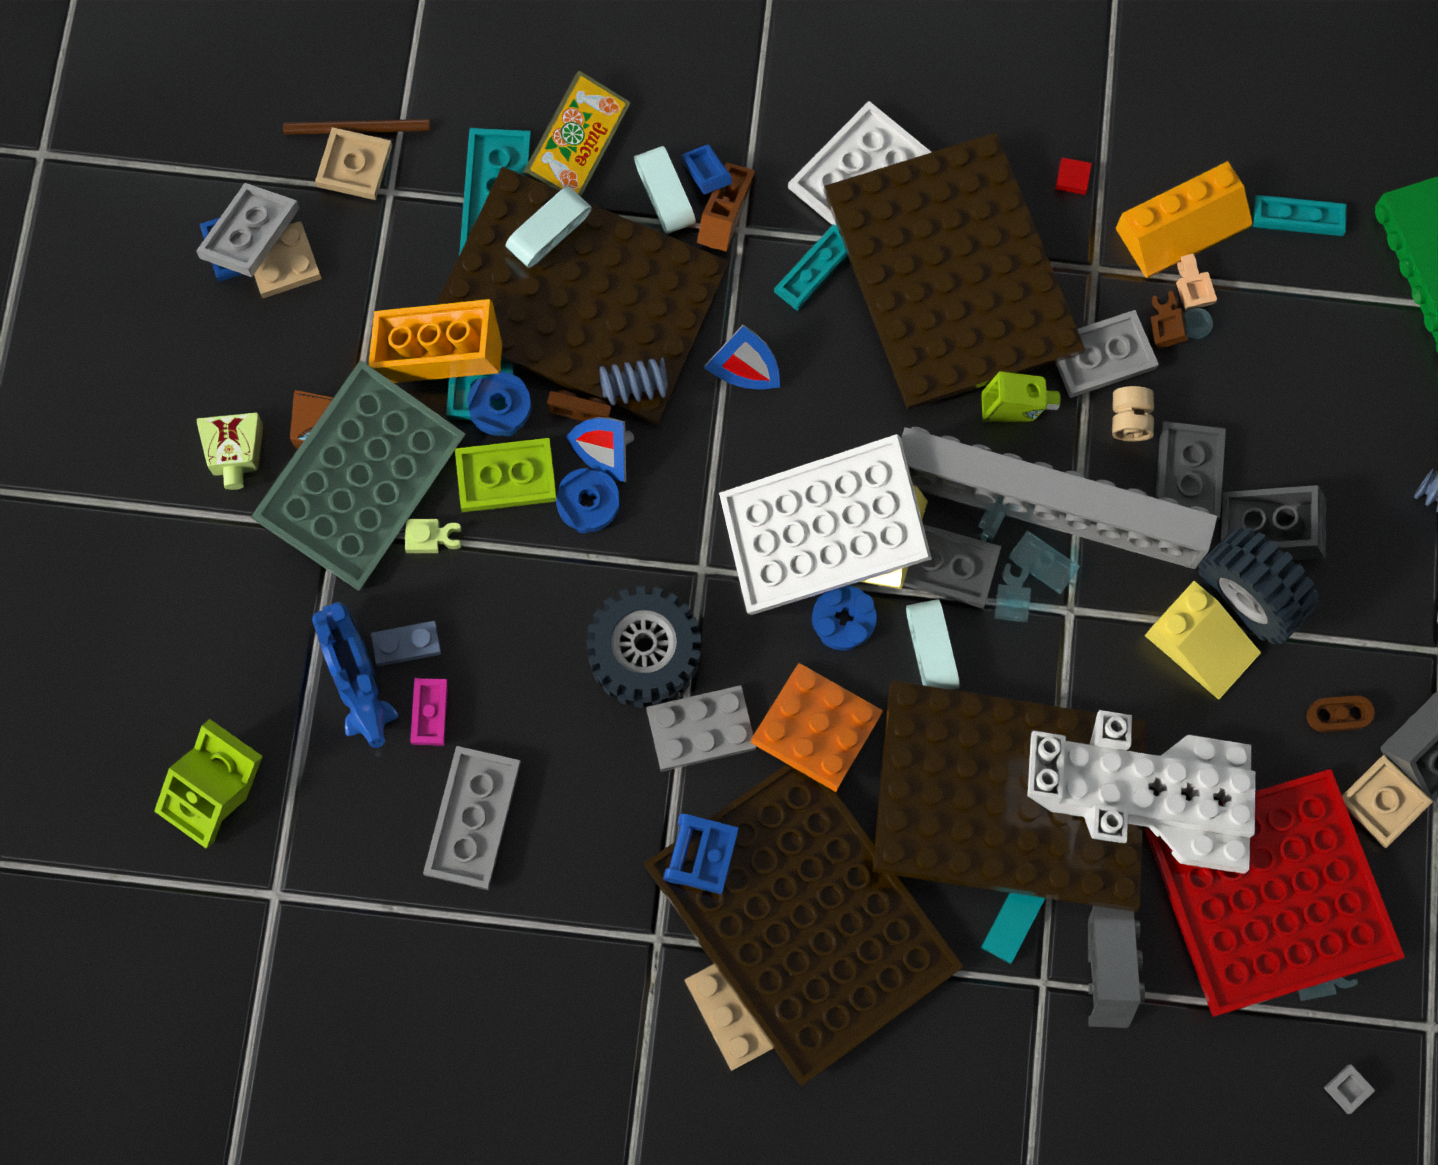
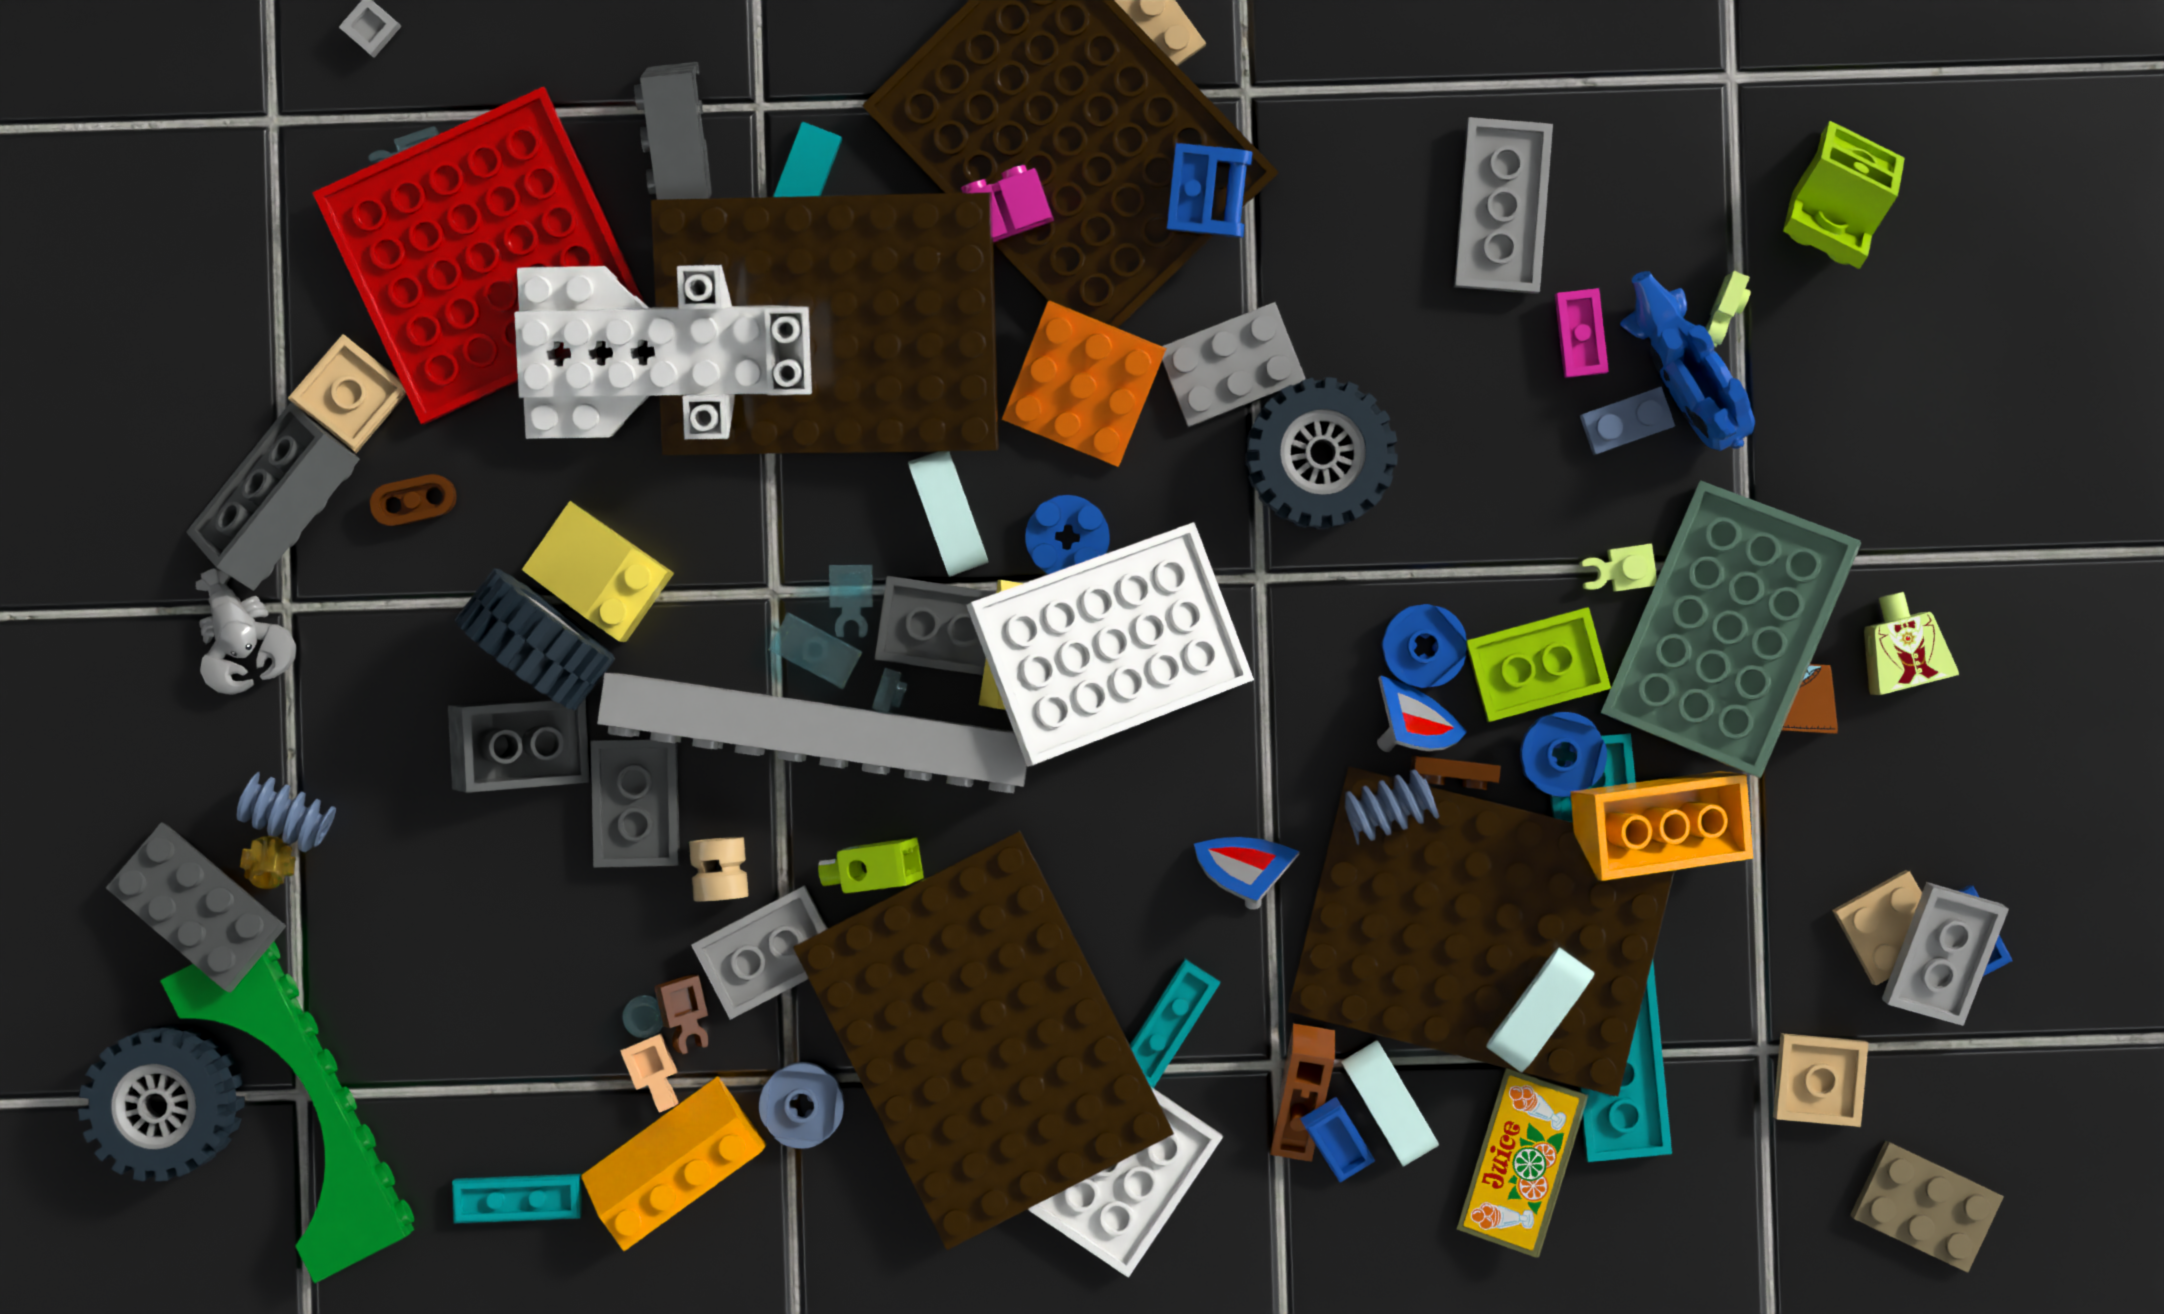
camera: 175 degrees right, 15 degrees up
(295, 73) = (1926, 1206): none -> dark tan plate
(311, 719) = (1730, 299): none -> yellowish green plate
(364, 126) = (1826, 1138): reddish brown axle -> none
(852, 868) = (1016, 202): none -> dark pink piece
(1073, 176) = (832, 1210): red tile -> none
(1088, 264) = (783, 1120): none -> sand blue plate

